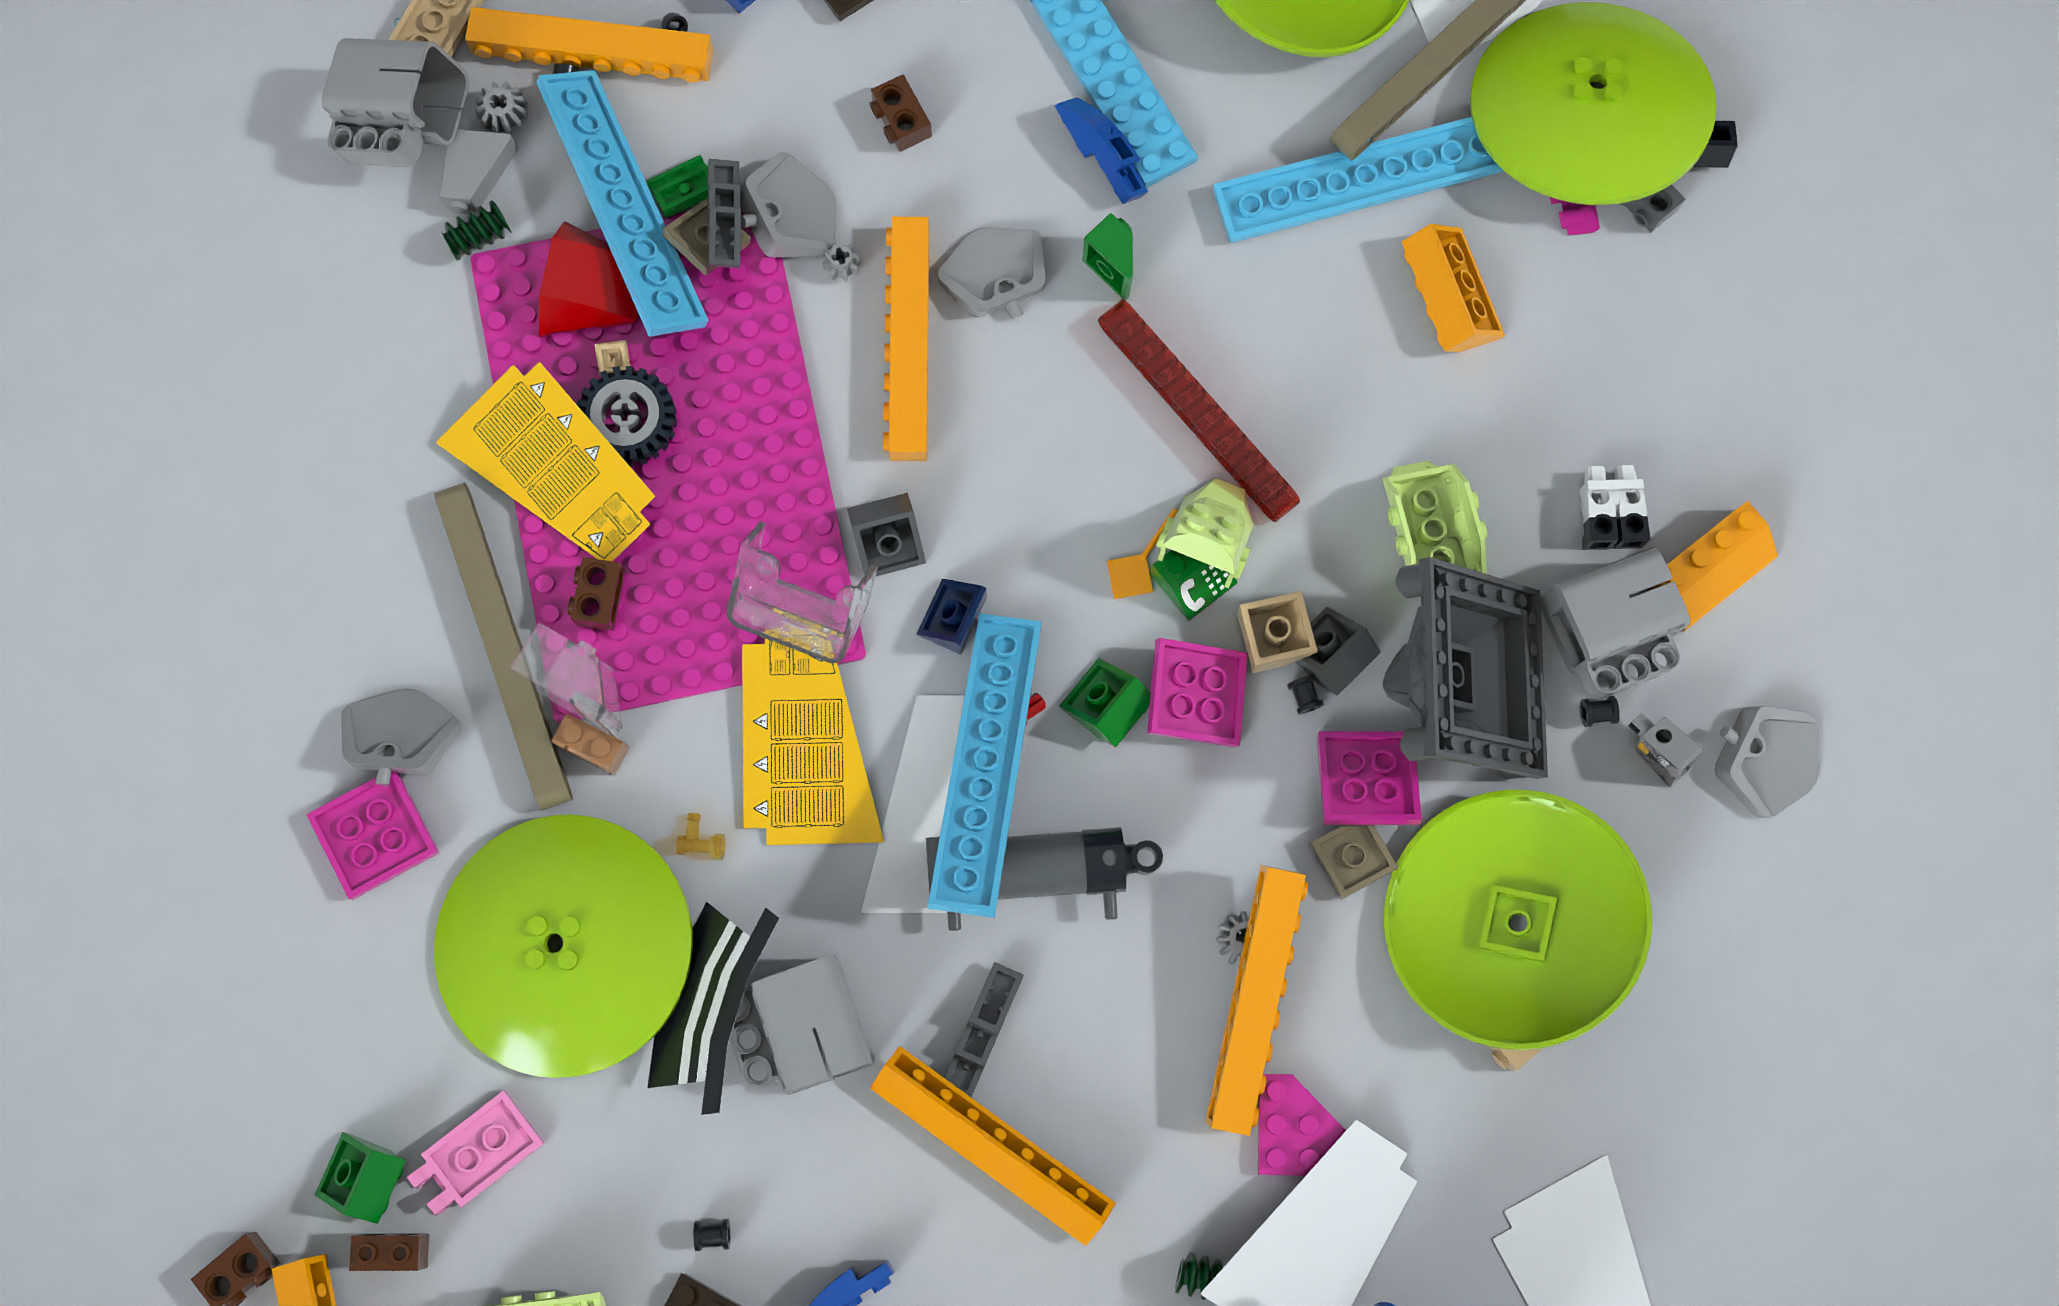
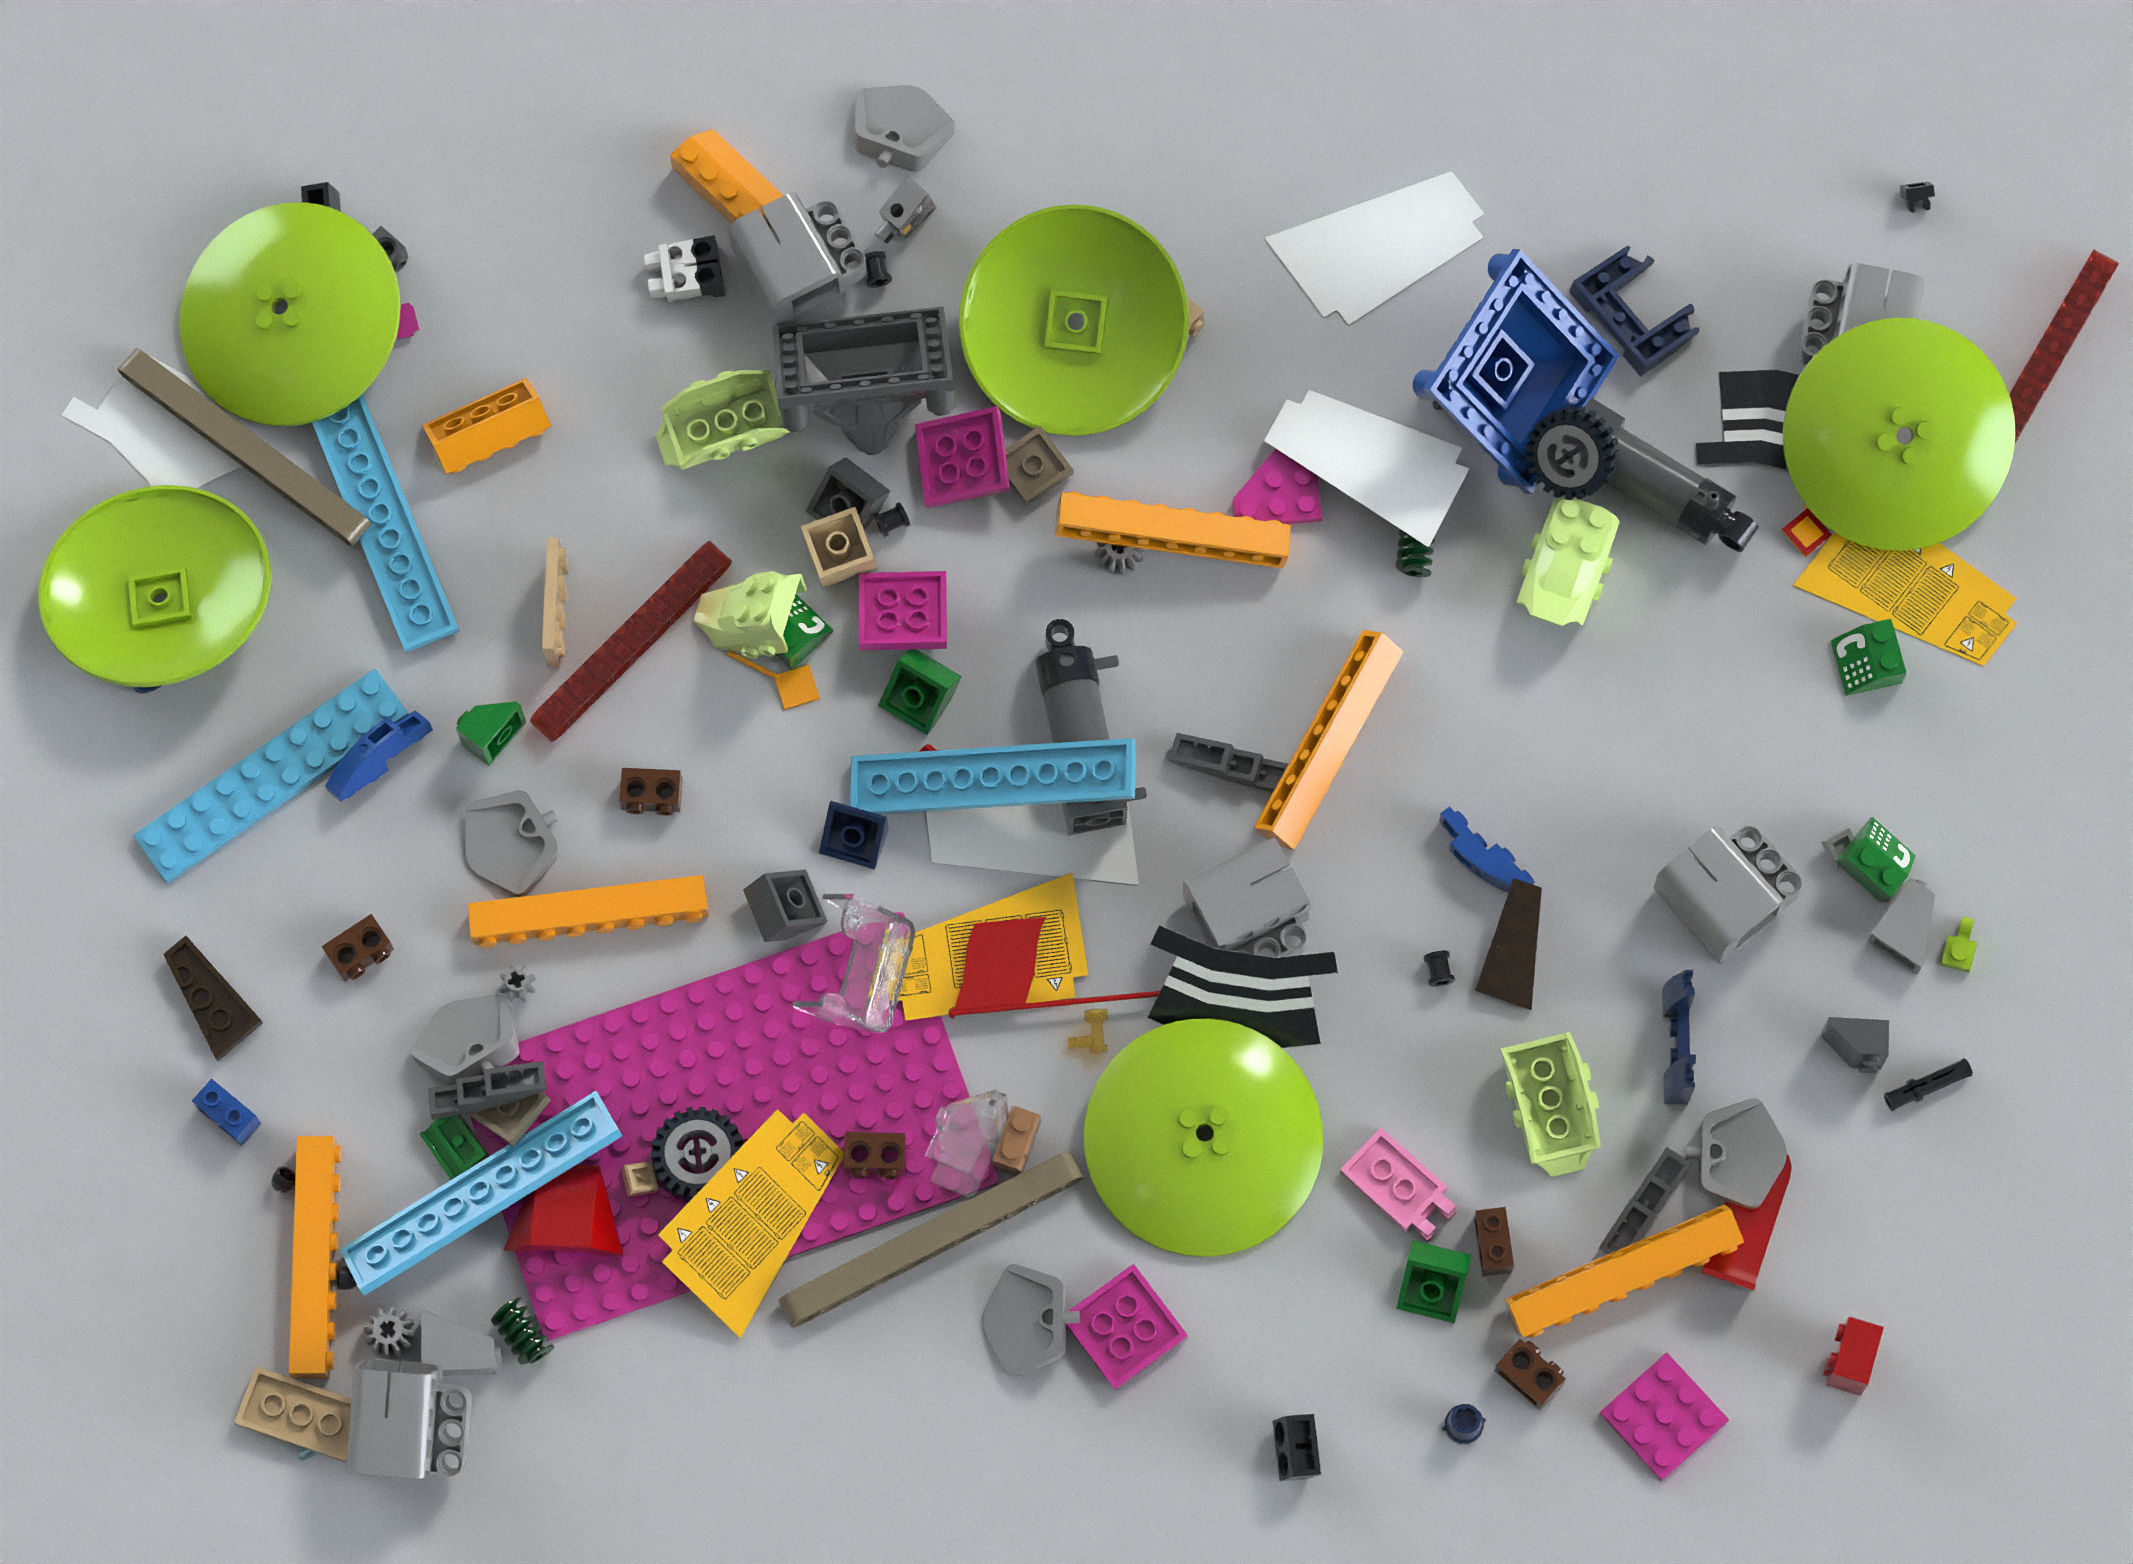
camera: 90 degrees left, 5 degrees down
(199, 1189) = (1464, 1424): none -> dark blue piece
(201, 1000) = (1296, 1447): none -> black brick
(781, 752) = (1002, 969): none -> red flag
(1034, 413) = (652, 782): none -> reddish brown brick
(1246, 331) = (555, 593): none -> tan plate

